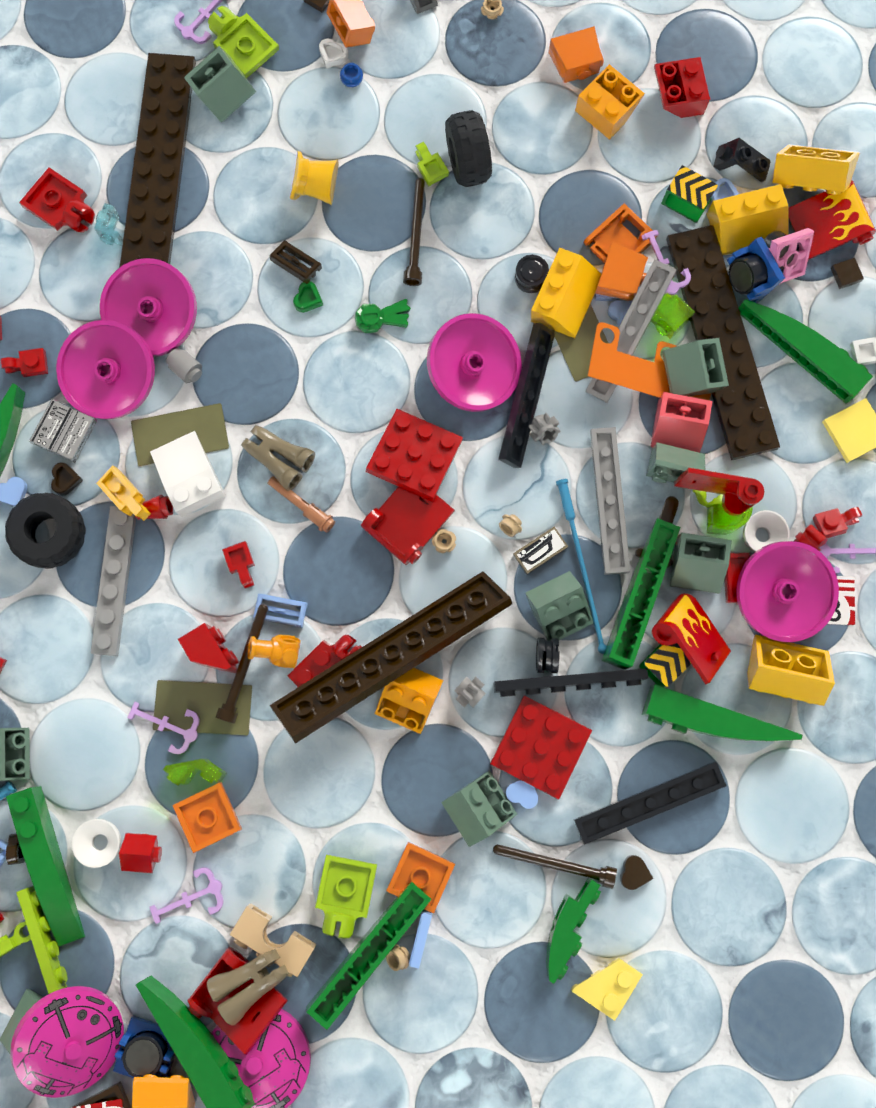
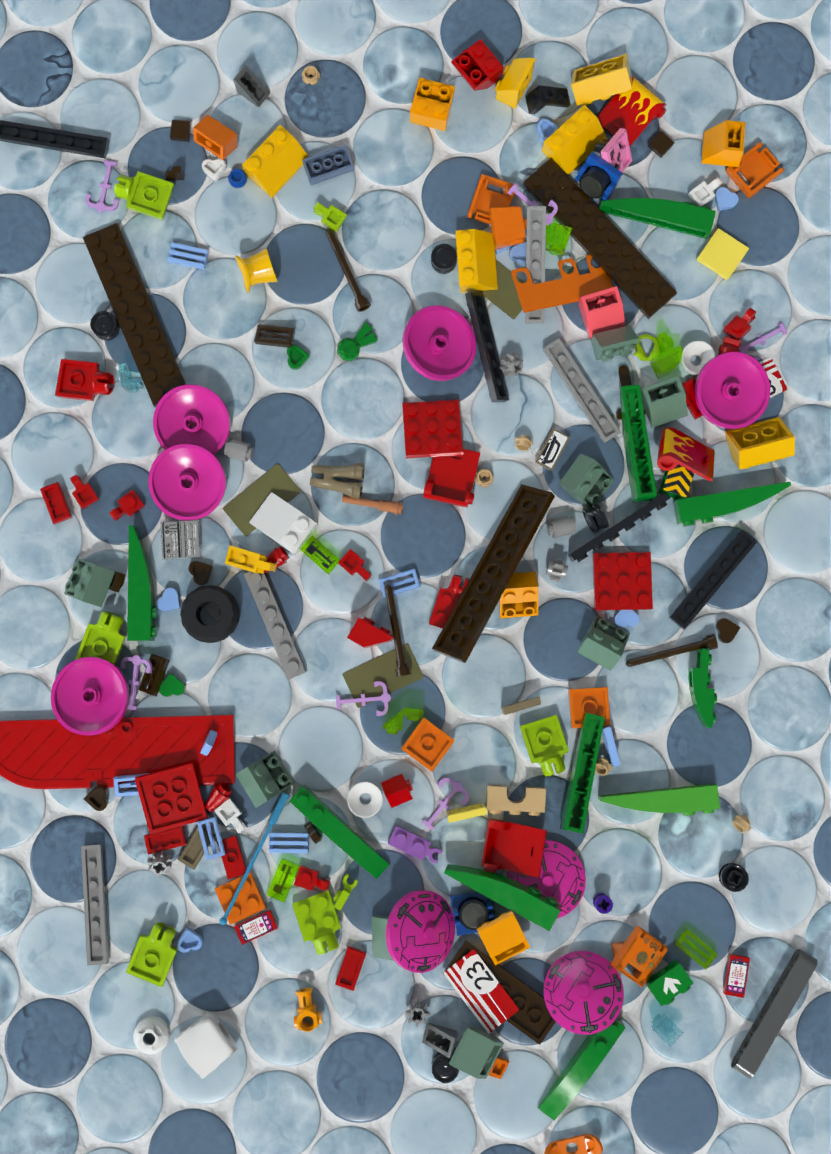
camera: 25 degrees left, 5 degrees up
(45, 949) = (370, 884): lime plate -> none
(116, 157) = (105, 325): none -> black wheel
(124, 928) = (412, 844): none -> medium lavender plate
(203, 925) = (466, 812): none -> light yellow tile
(208, 530) = (320, 555): none -> clear neon green tile
(220, 84) = (150, 234): sand green slope -> none
(224, 983) = (501, 840): dark tan piece -> none
(254, 121) = (172, 252): none -> light blue tile
(280, 651) = (416, 610): light orange connector -> none
(286, 37) = (175, 174): none -> dark brown tile
(341, 830) = (521, 705): none -> dark tan tile
(402, 76) = (275, 161): none -> yellow slope
(446, 103) = (328, 165): none -> sand blue piece
(454, 1044) = (669, 800): none -> bright green slope
(468, 148) = (353, 191): black tyre -> none
(502, 644) = (561, 526): none -> light grey brick
(570, 516) = (559, 414): dark azure piece -> none
(576, 54) = (390, 80): orange torso -> none
(609, 987) = (748, 712): light yellow wing -> none
(689, 194) = (523, 143): piece -> none
(695, 368) = (593, 268): sand green slope -> none
(716, 123) = (515, 81): none -> yellow slope
(738, 491) = (667, 343): red door -> none

